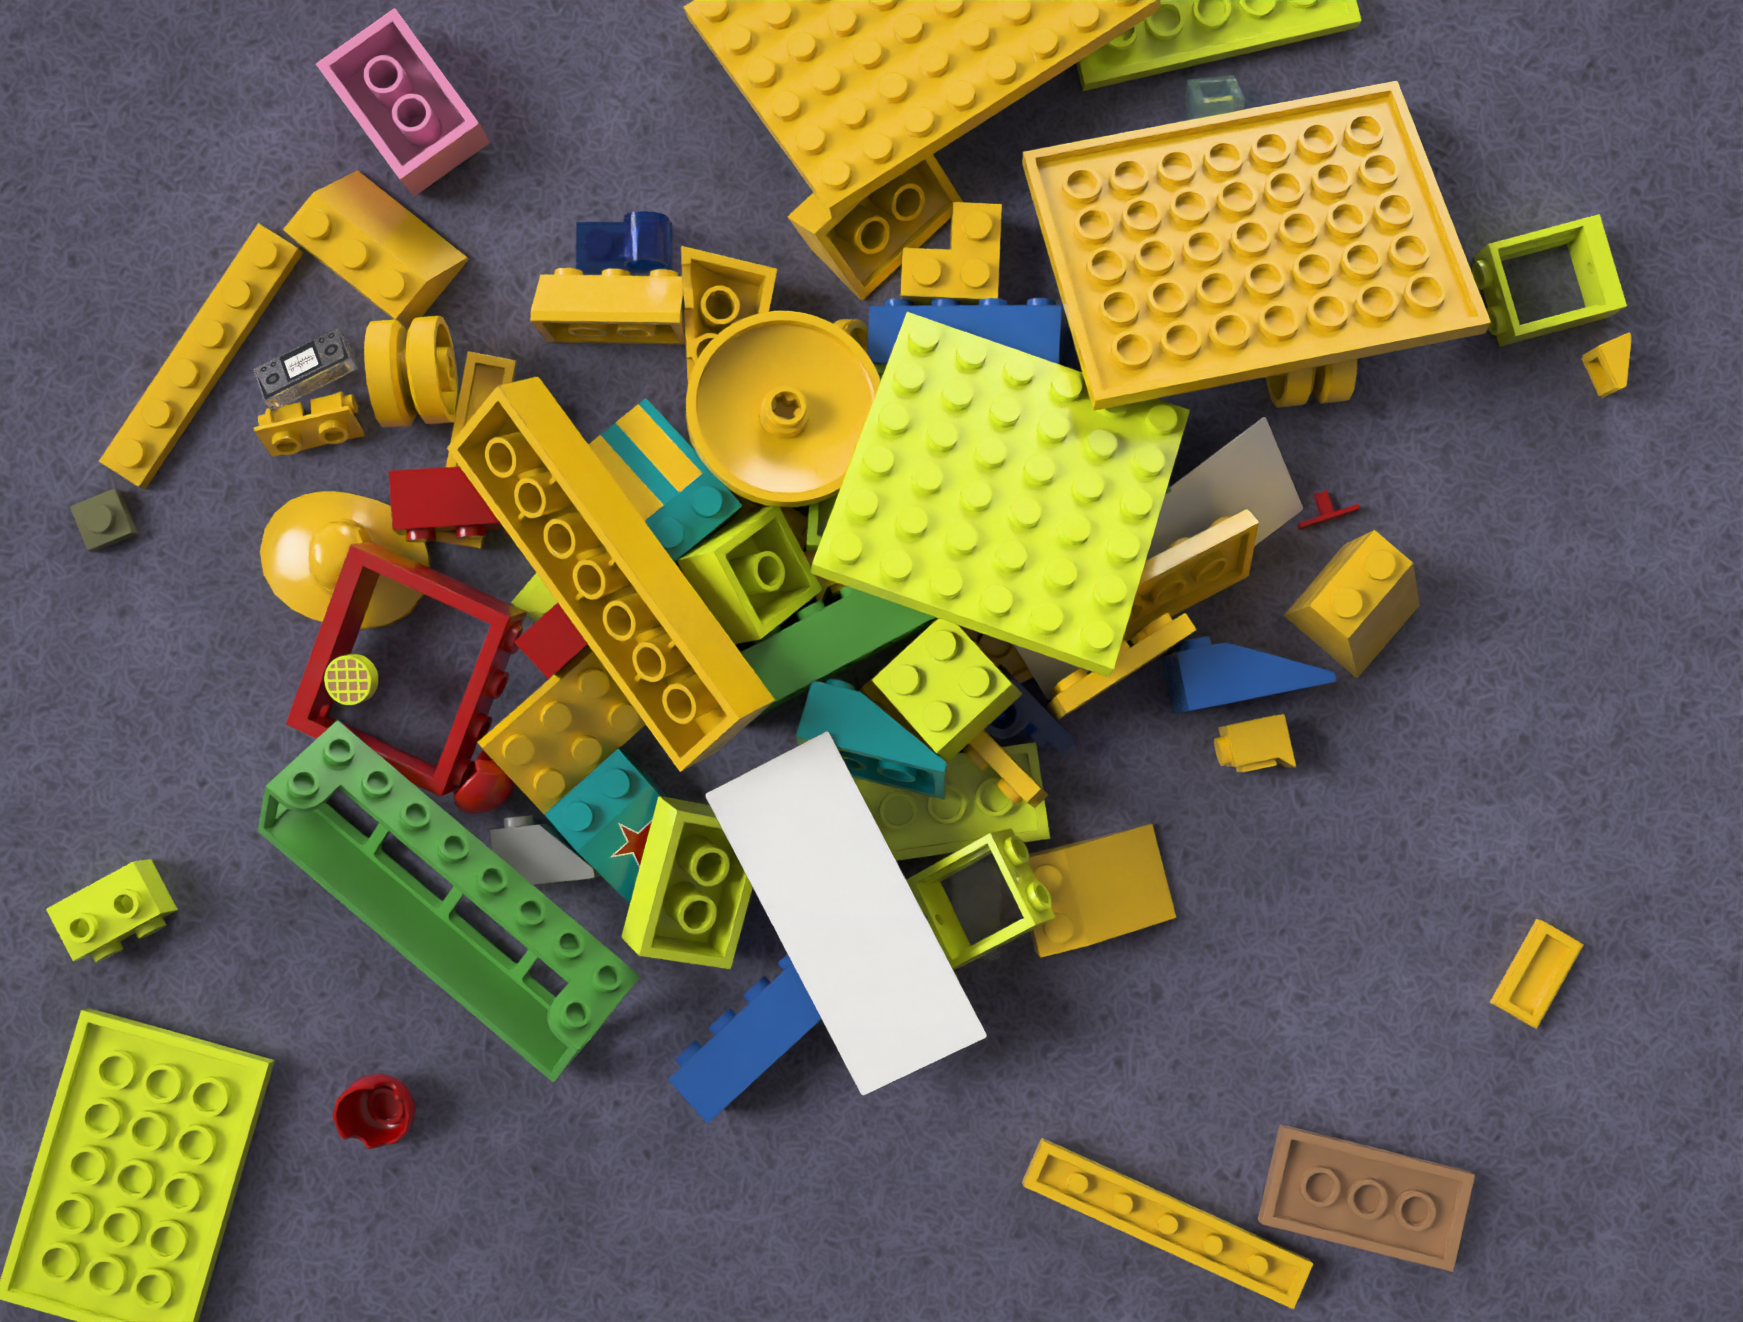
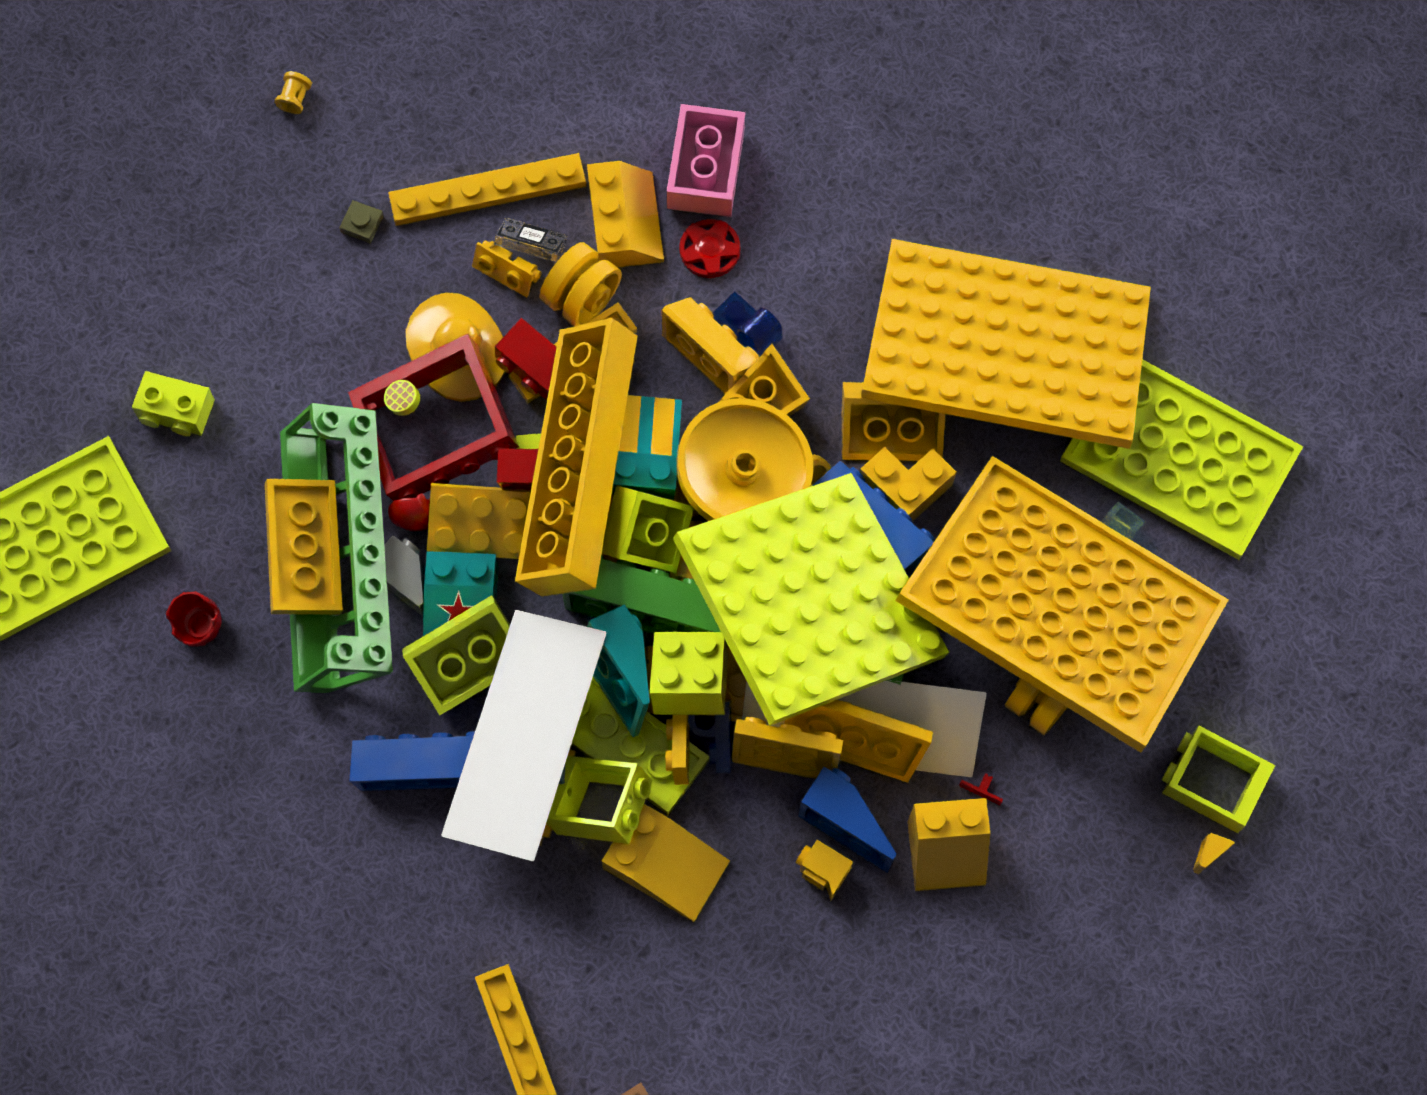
camera: 45 degrees right, 15 degrees down
(410, 933) = (303, 546): none -> yellow plate
(502, 198) = (710, 248): none -> red wheel

